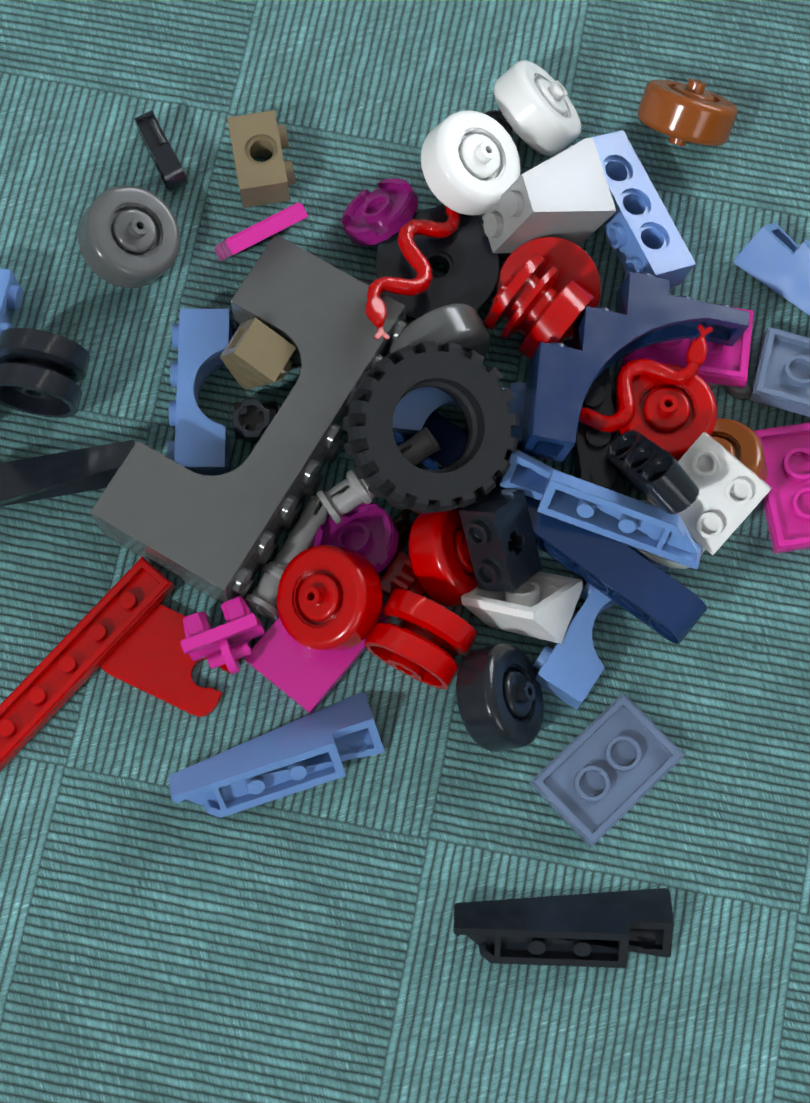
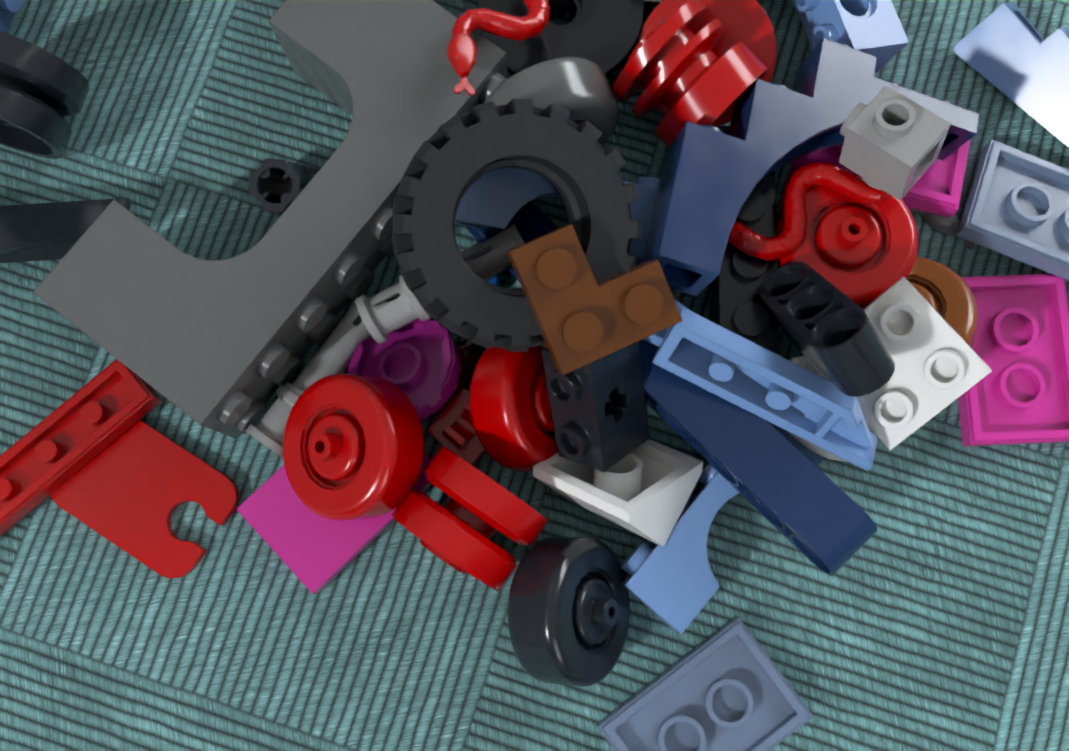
camera: 10 degrees right, 5 degrees up
(200, 341) = (241, 84): medium blue arch -> none
(205, 641) = (183, 480): dark pink hips -> none
(257, 355) = (301, 100): dark tan slope -> none
(282, 760) = (267, 655): medium blue wedge -> none
(485, 481) = (587, 318): none -> reddish brown plate
(683, 340) = (891, 141): none -> light grey brick

